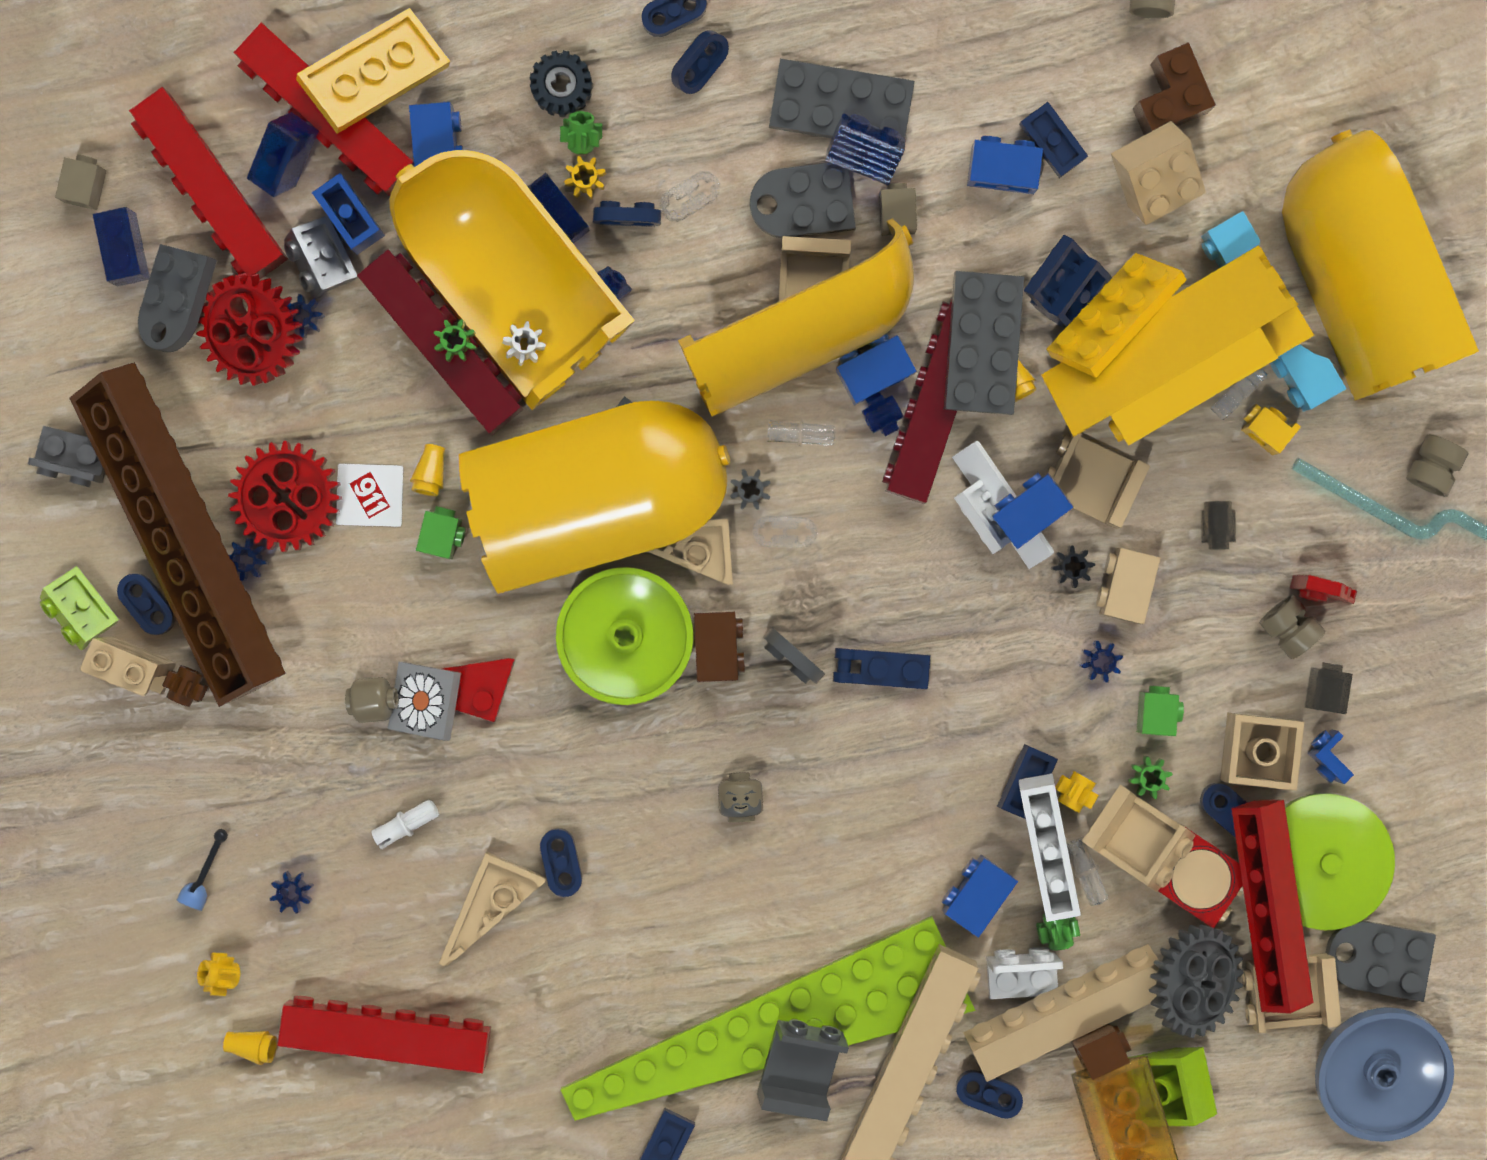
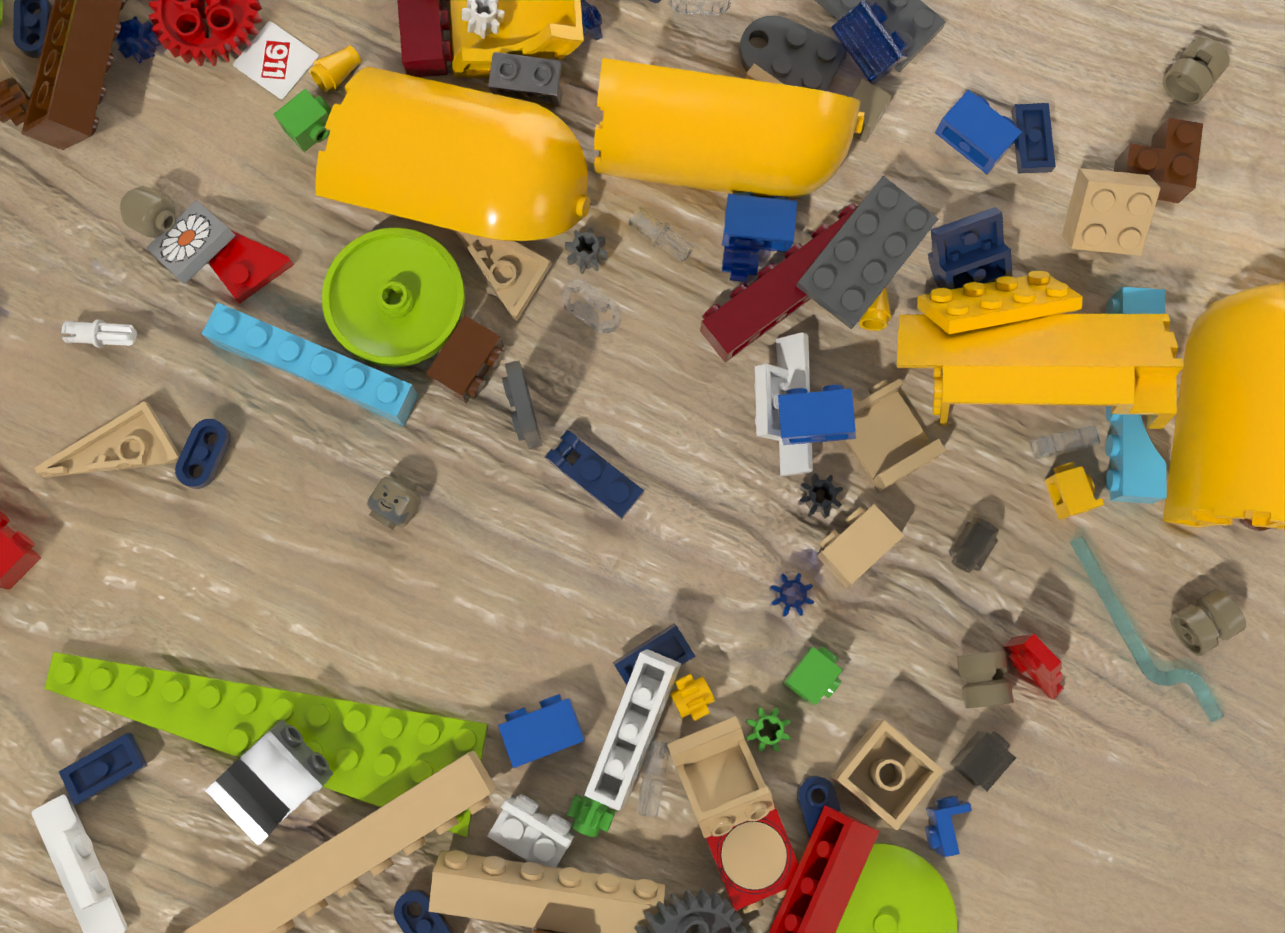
camera: 35 degrees right, 10 degrees down
(596, 735) = (318, 365): none -> medium azure arch
(600, 376) = (526, 78): none -> flat silver bracket

